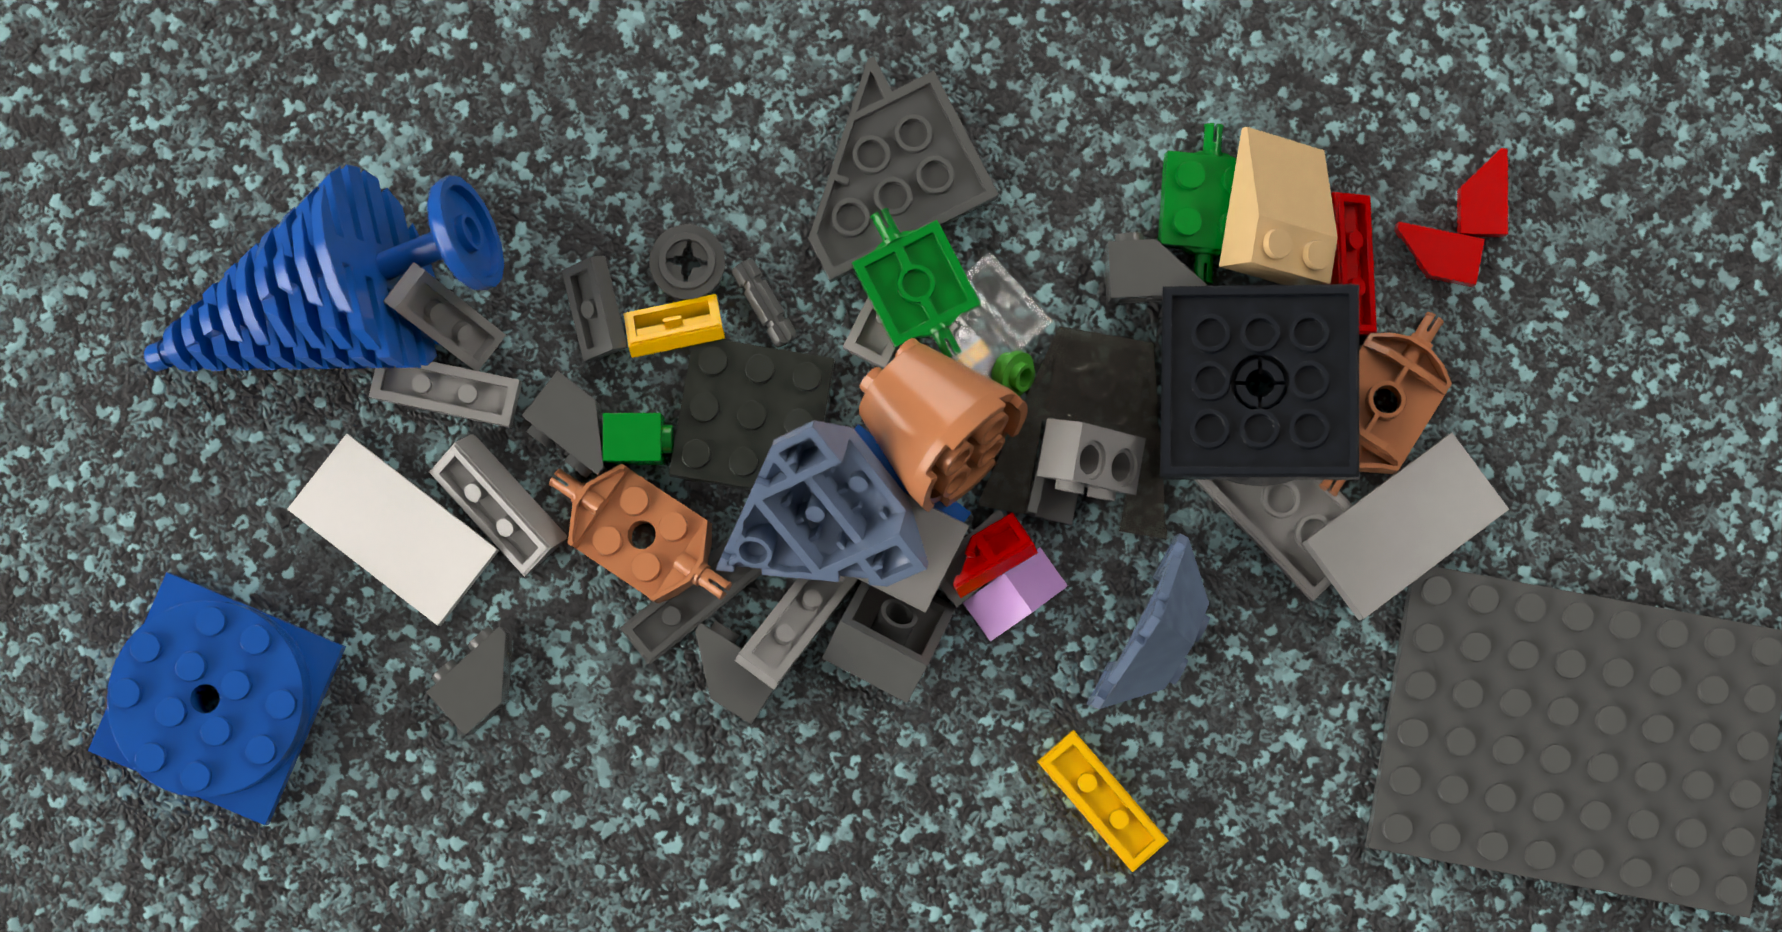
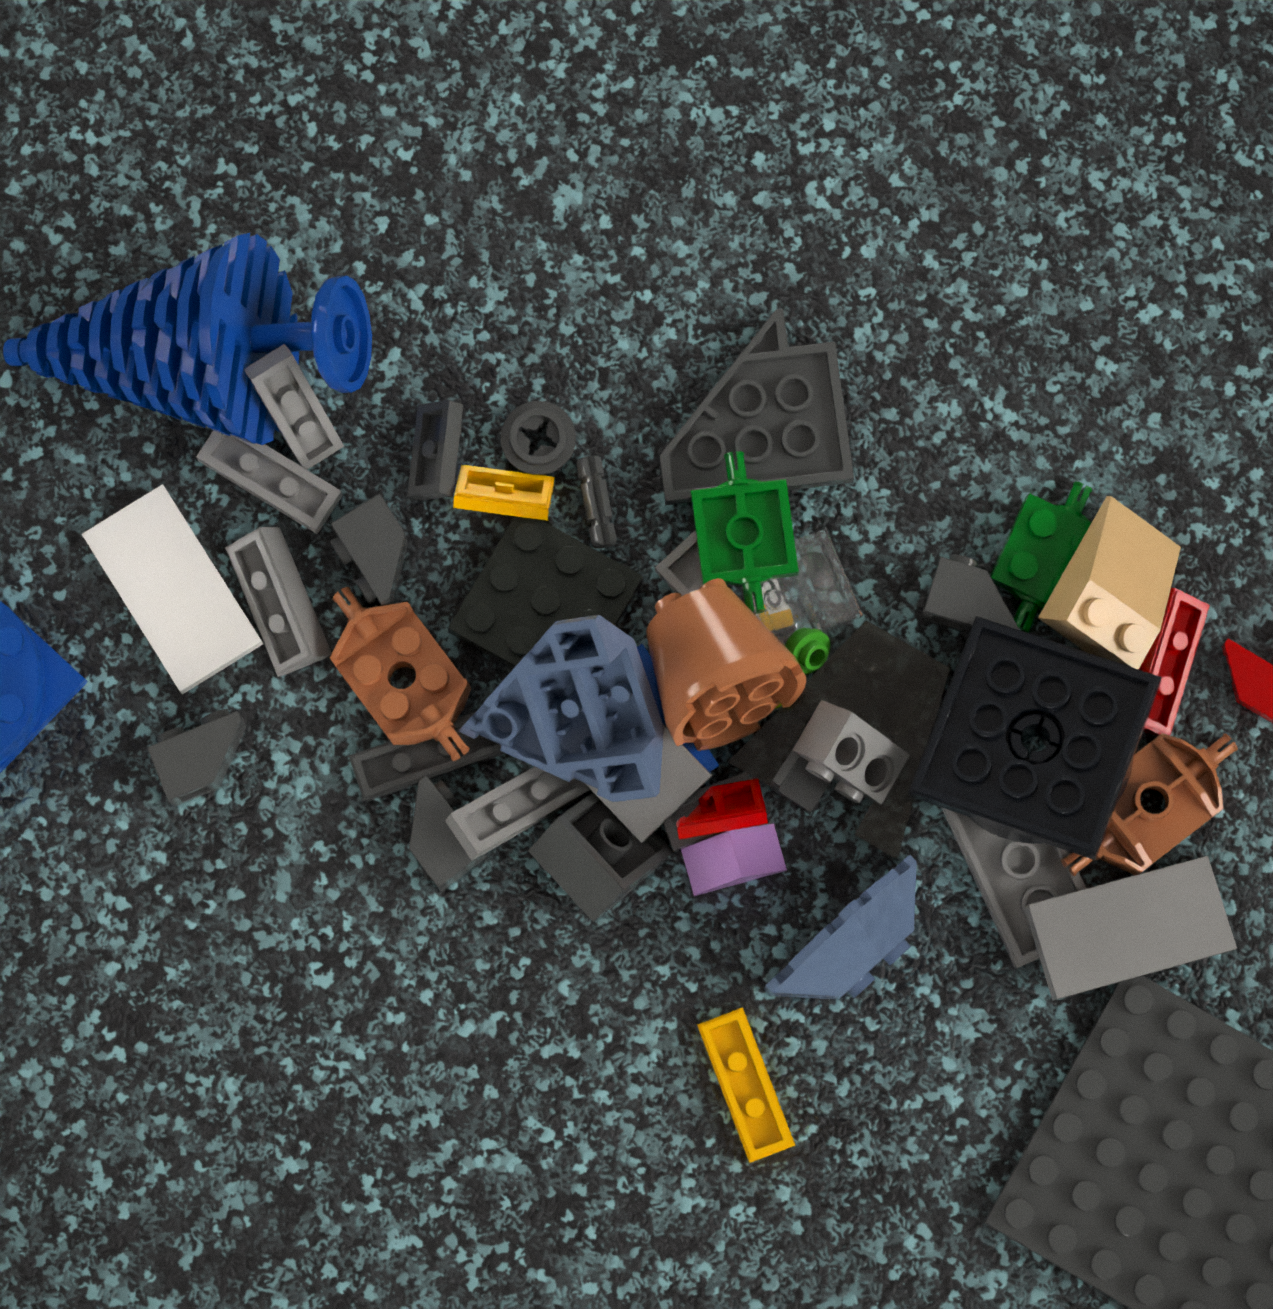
camera: 25 degrees right, 5 degrees down
(636, 438) = (429, 584): green brick -> none

